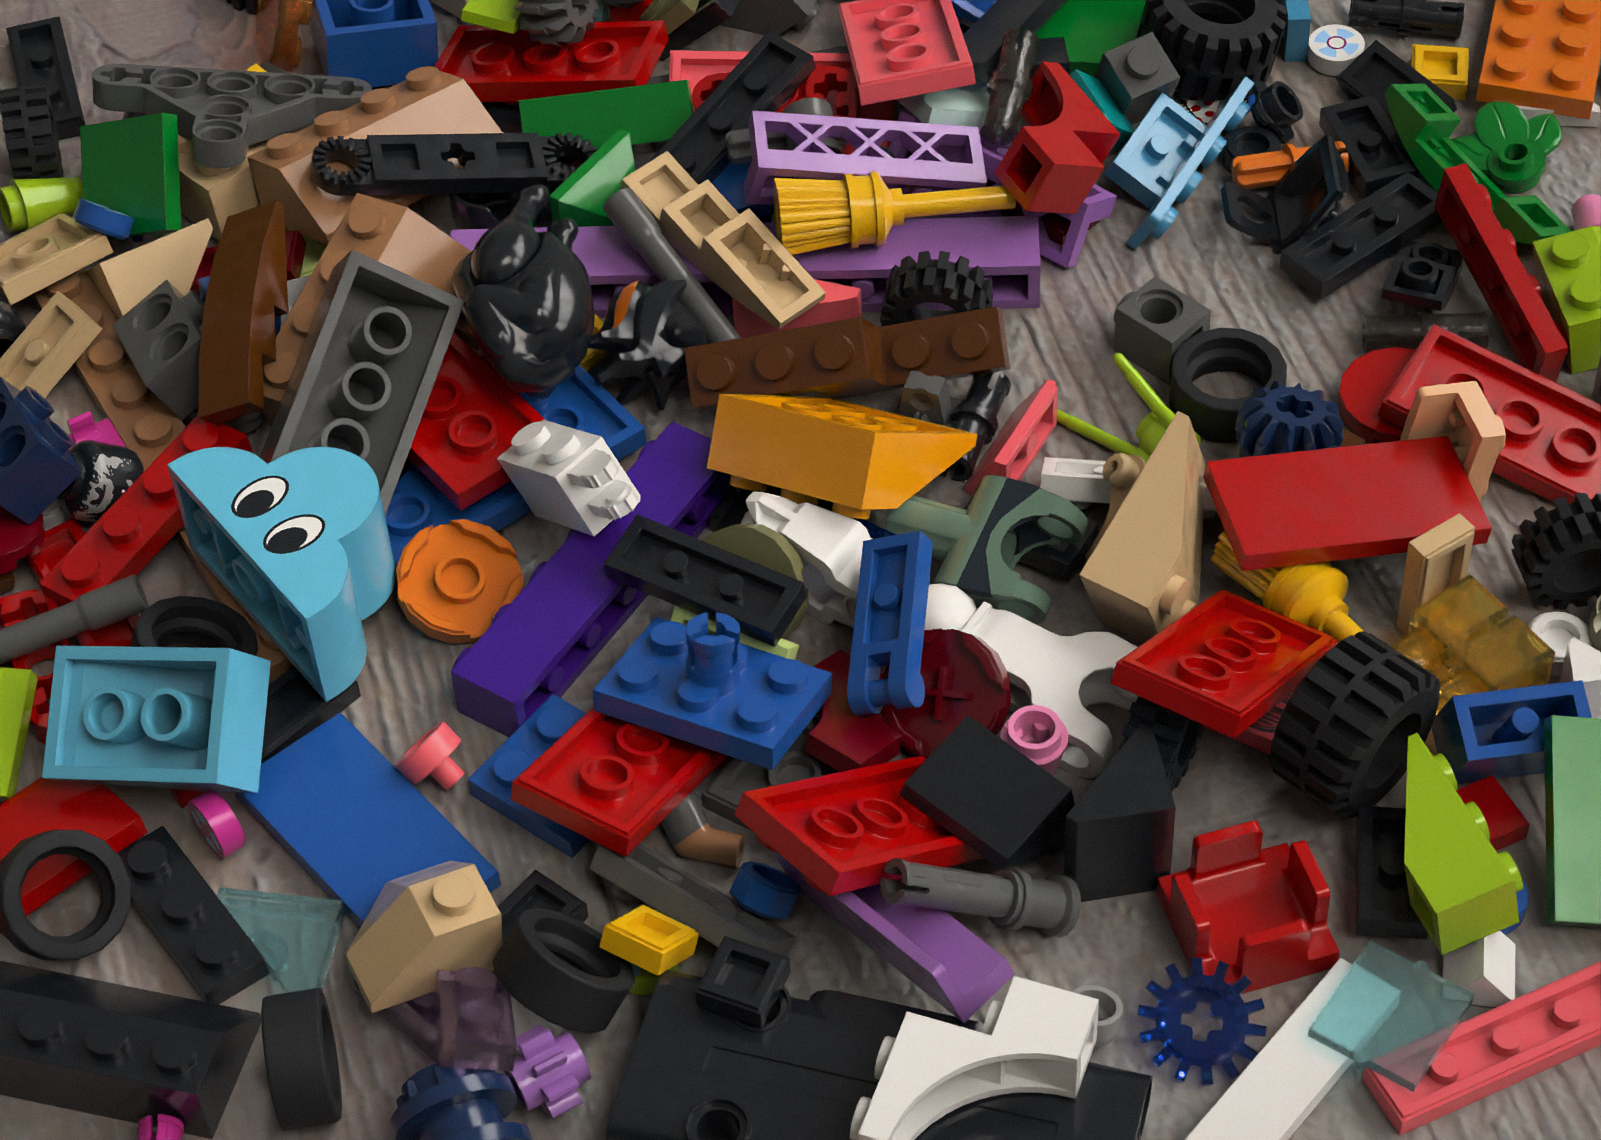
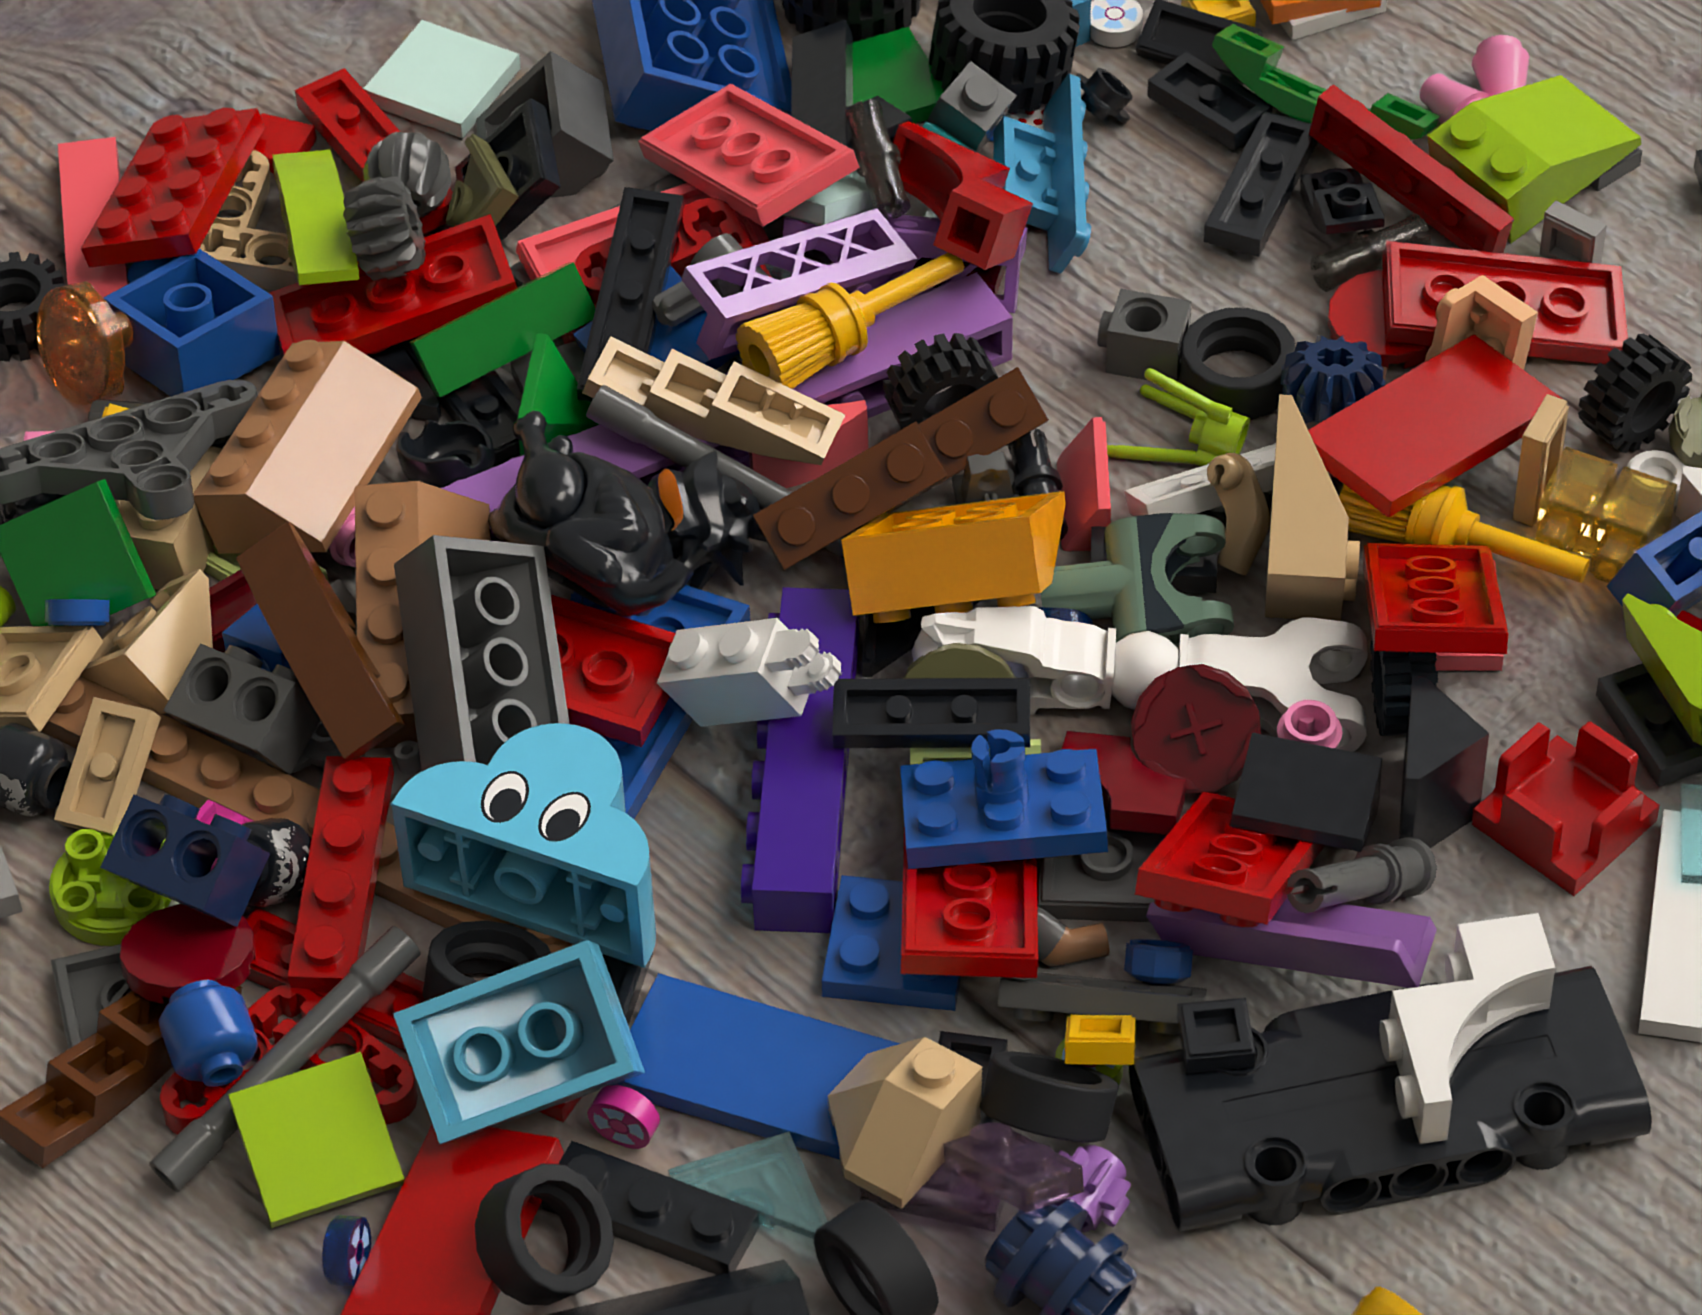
camera: 30 degrees left, 0 degrees up
(421, 163) = (368, 442): black piece -> none
(432, 757) = (775, 973): coral tile -> none
(456, 580) = (685, 811): orange tile -> none
(890, 623) = (1125, 681): blue plate -> none
(1224, 1005) = (1599, 887): clear blue gear -> none
(1247, 142) = (1109, 144): black tile -> none
(1269, 167) = (1153, 144): orange axle -> none
(1298, 203) = (1185, 172): black piece -> none
(1352, 722) = (1565, 609): black tyre -> none
(1510, 145) = (1332, 53): green plate -> none

